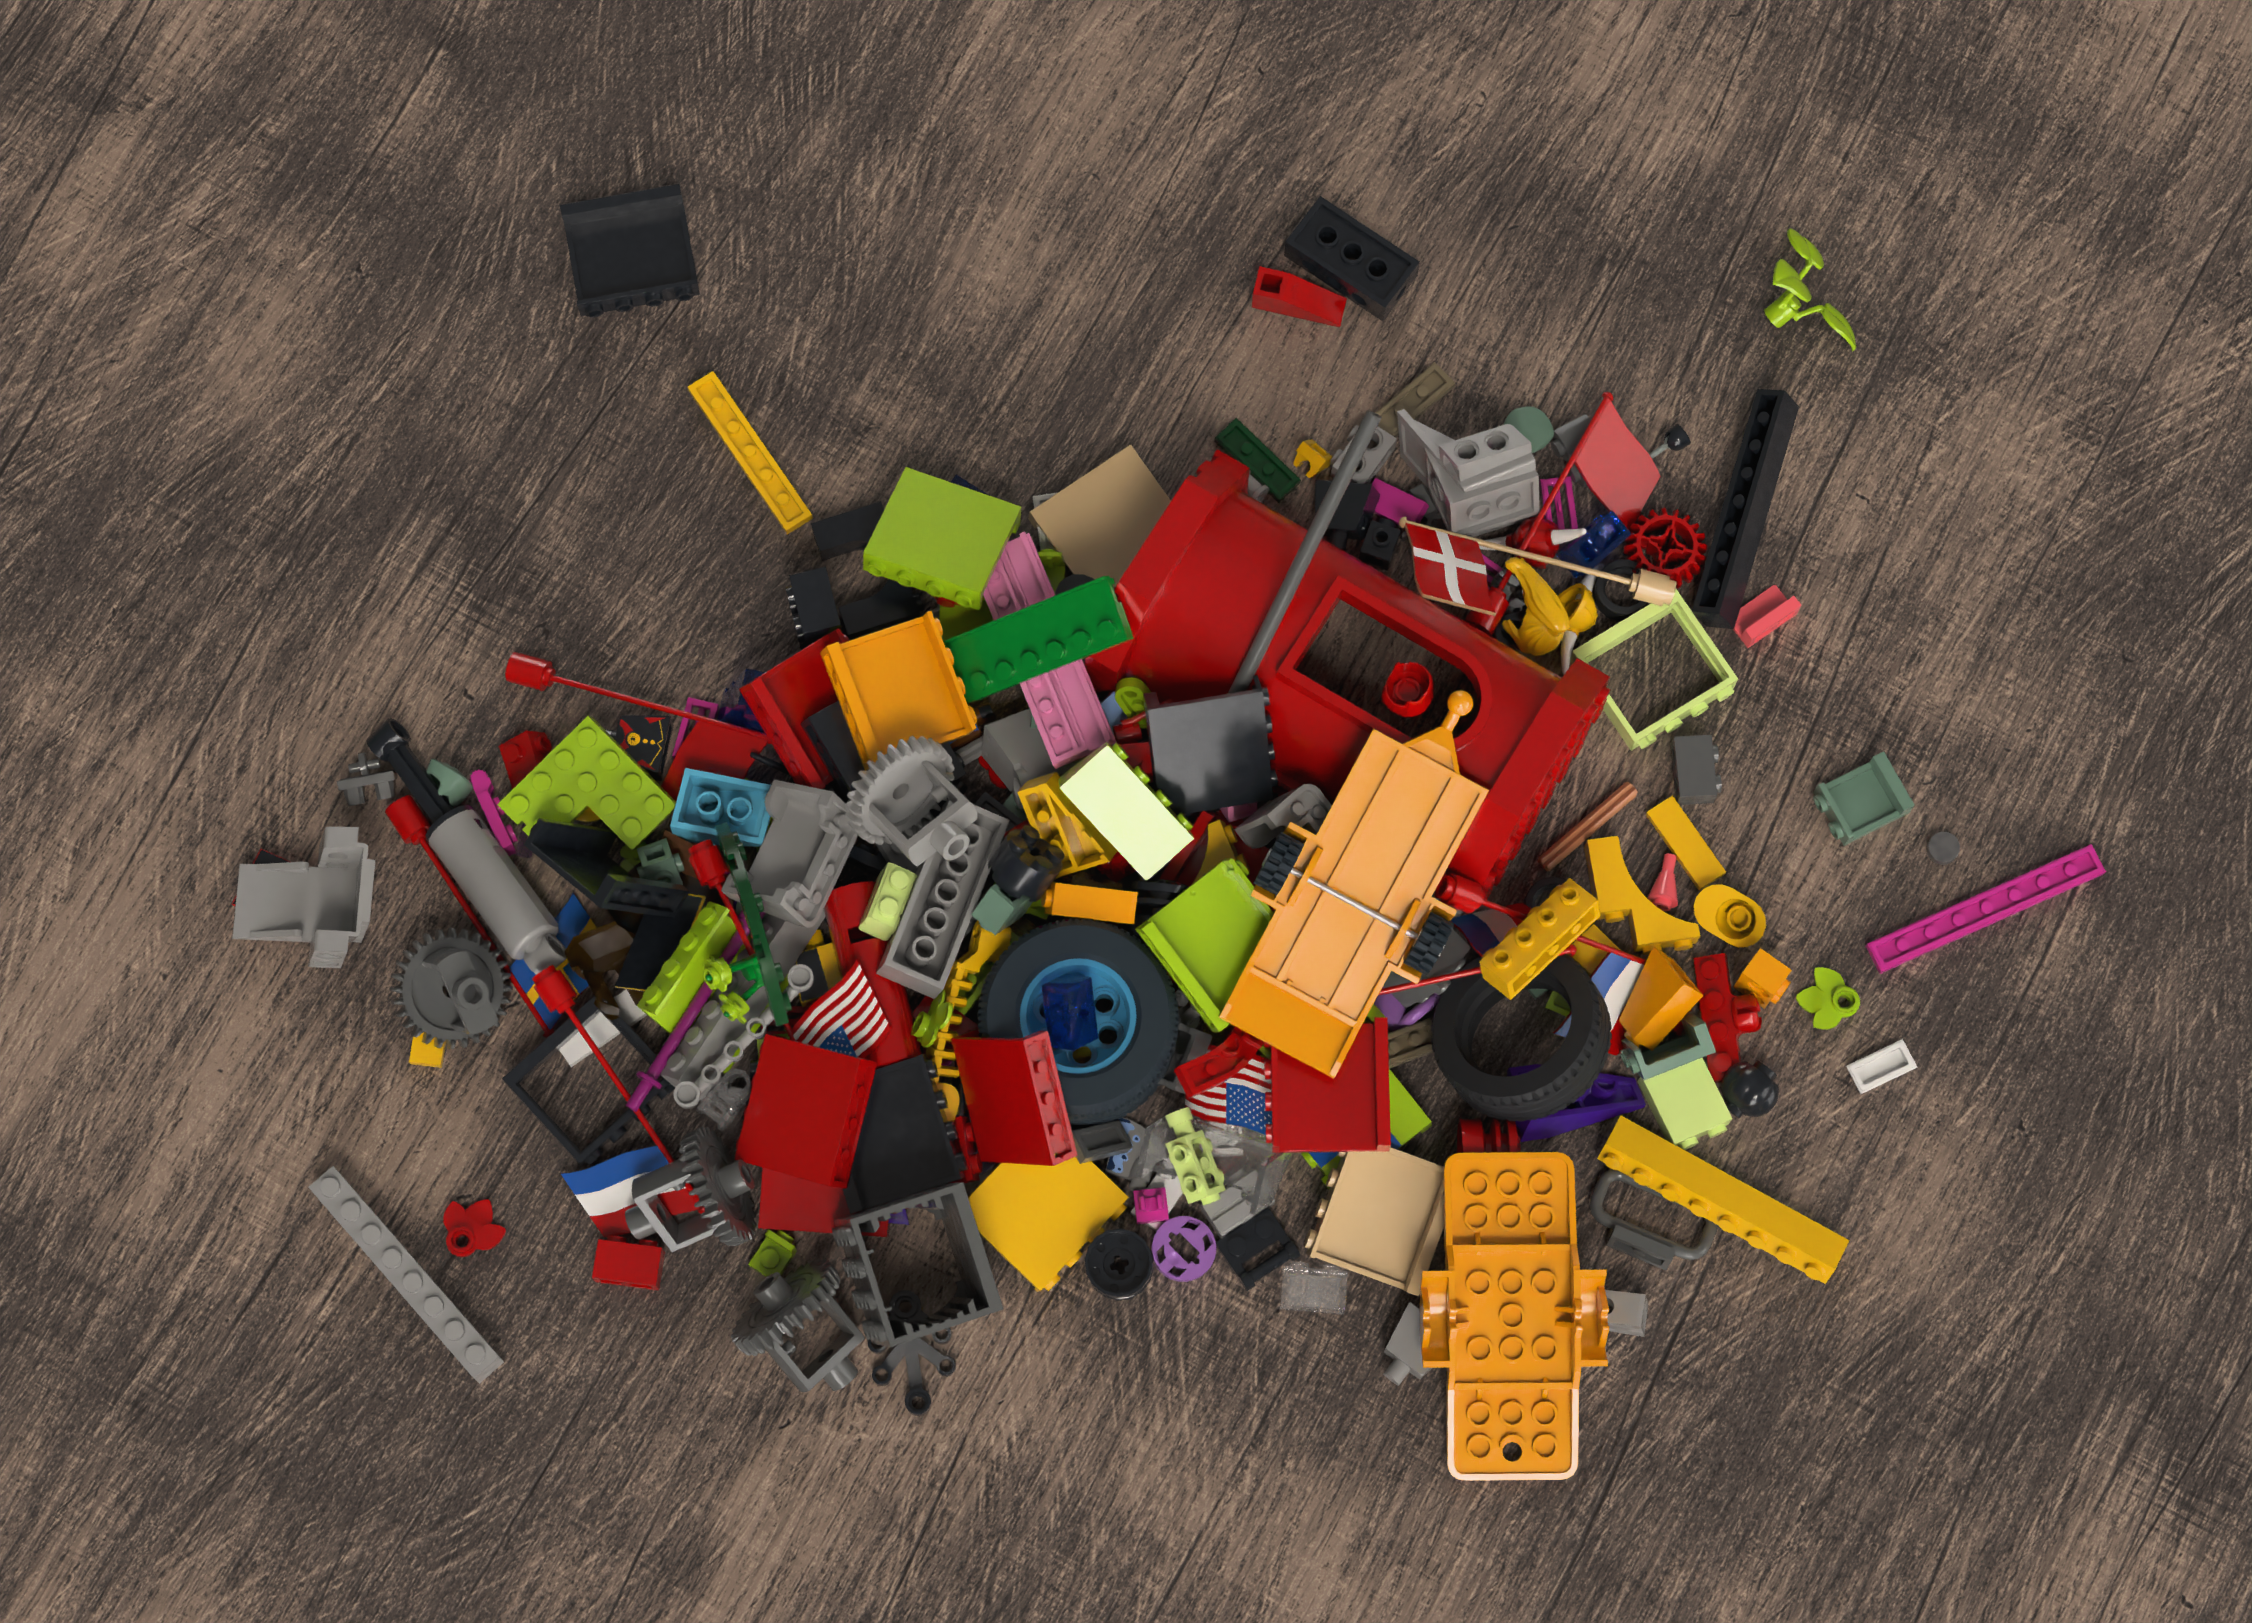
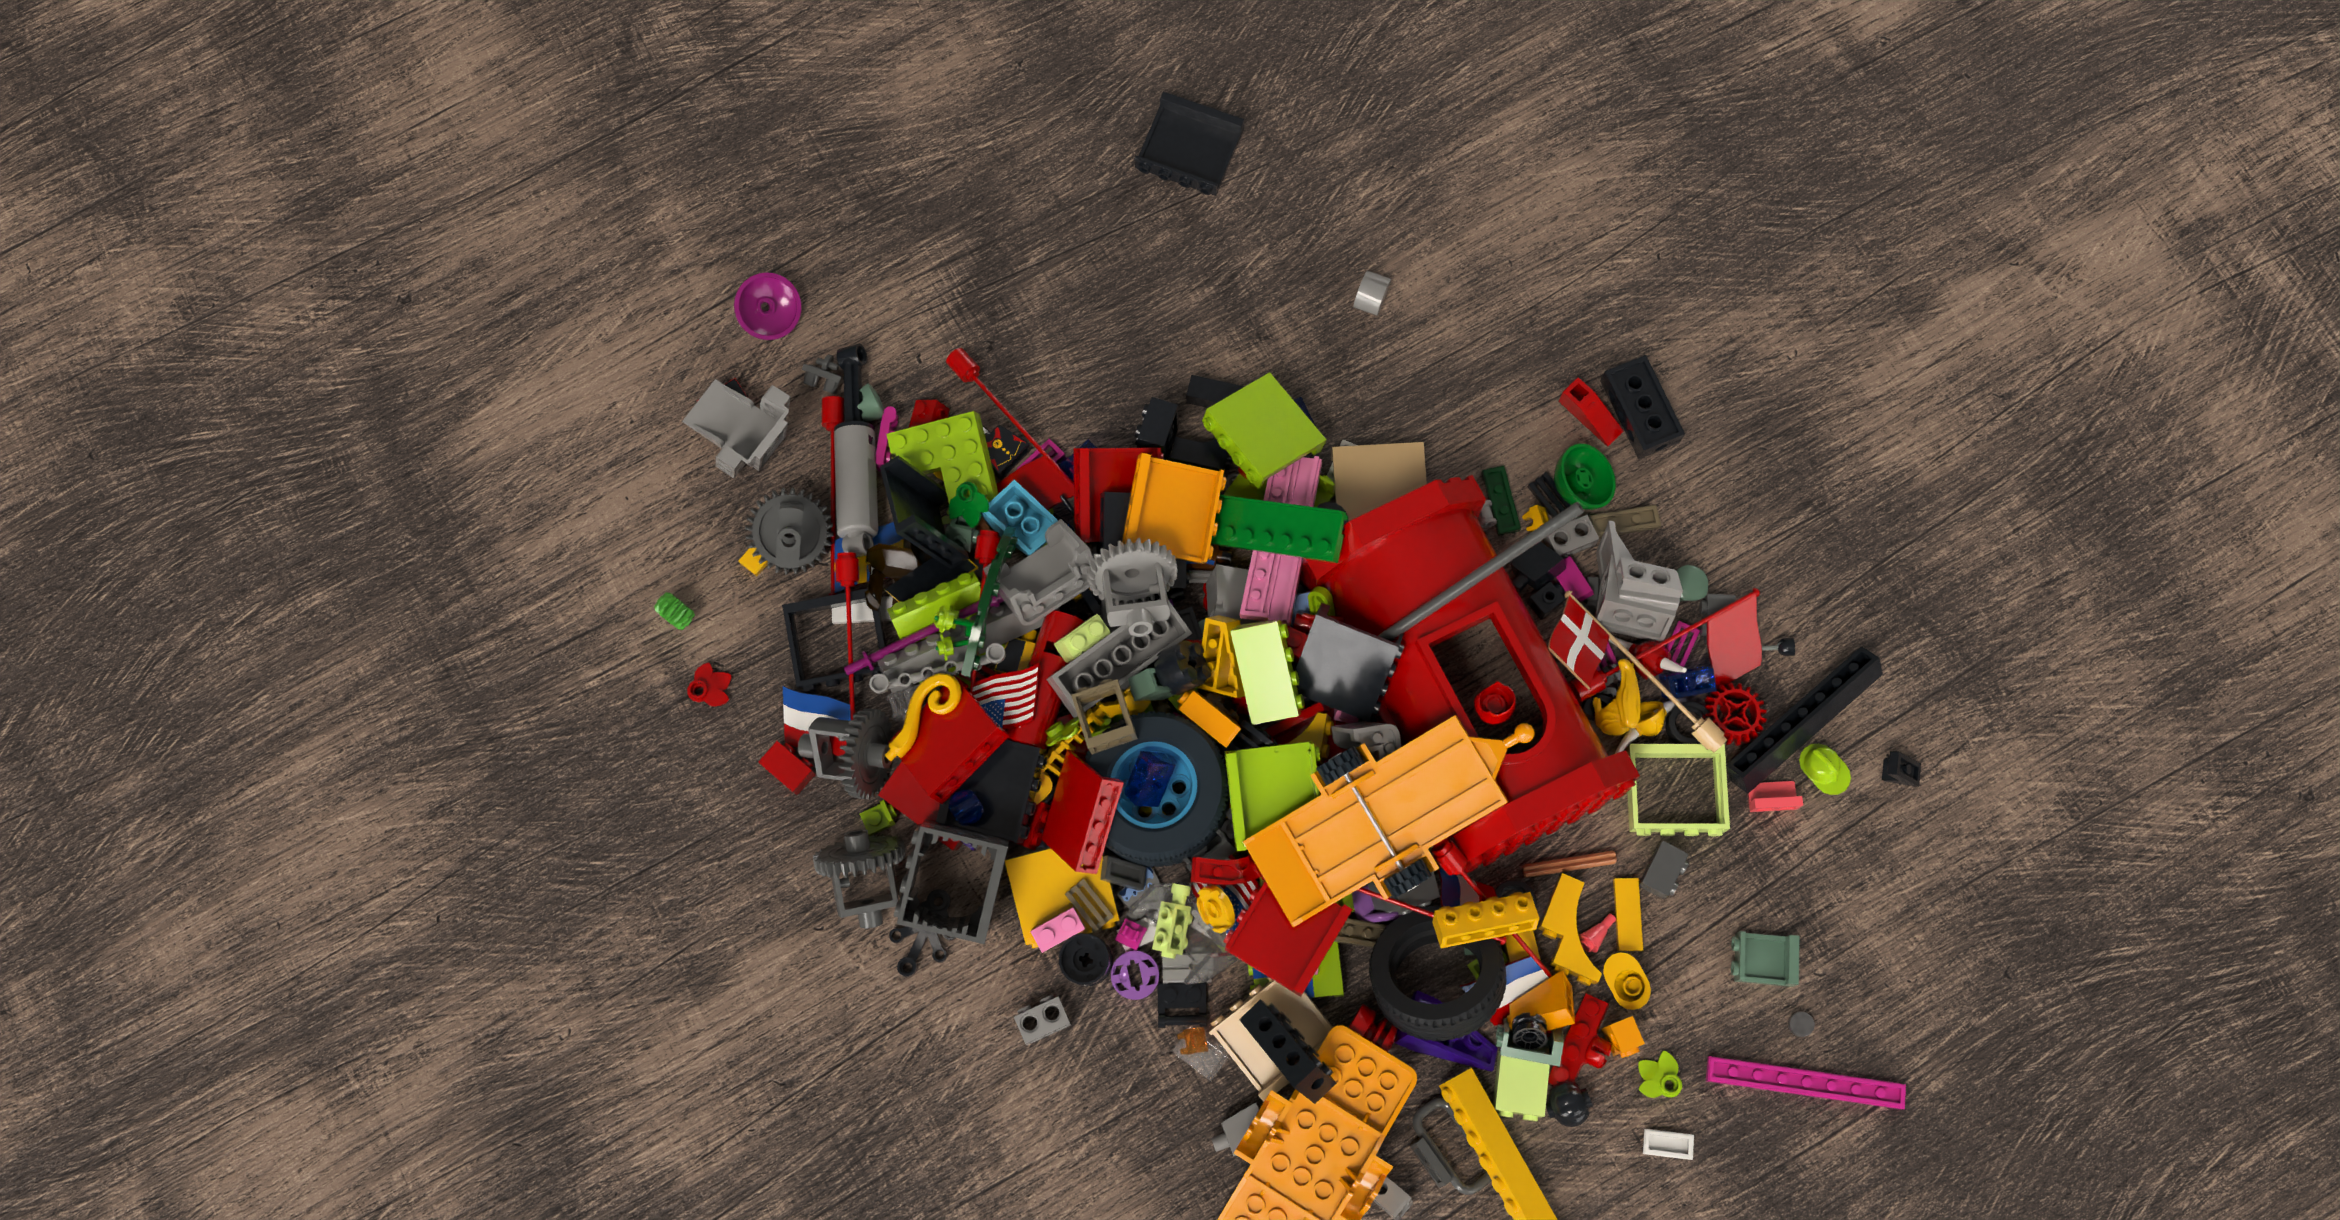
camera: 35 degrees right, 0 degrees up
(263, 732) = (782, 302): none -> magenta dish
(373, 1165) = (674, 611): none -> bright green gear
(406, 1274) = (651, 691): light grey brick -> none
(652, 832) = (970, 506): none -> green plate
(750, 452) = (1183, 310): yellow plate -> none
(756, 1135) = (905, 739): none -> yellow plant
(876, 1175) = (965, 807): none -> clear blue piece
(959, 304) = (1371, 293): none -> light grey piece
(998, 993) = (1111, 738): none -> dark tan window
(1067, 1248) = (1057, 929): none -> bright pink brick
(1110, 1209) = (1102, 921): none -> dark tan tile
(1118, 1367) = (1044, 1026): none -> light grey brick
(1233, 1112) = (1216, 908): none -> yellow tile
(1300, 1274) = (1195, 1041): none -> clear orange tile
(1314, 412) = (1549, 481): none -> black tile
(1338, 378) = (1585, 477): none -> green piece
(1414, 1215) = (1289, 1050): none -> black brick
(1659, 1034) = (1529, 1031): none -> black wheel
(1788, 304) = (1916, 603): lime plant -> none
(1800, 550) = (1825, 769): none -> lime piece
(1882, 501) = (1901, 769): none -> black slope

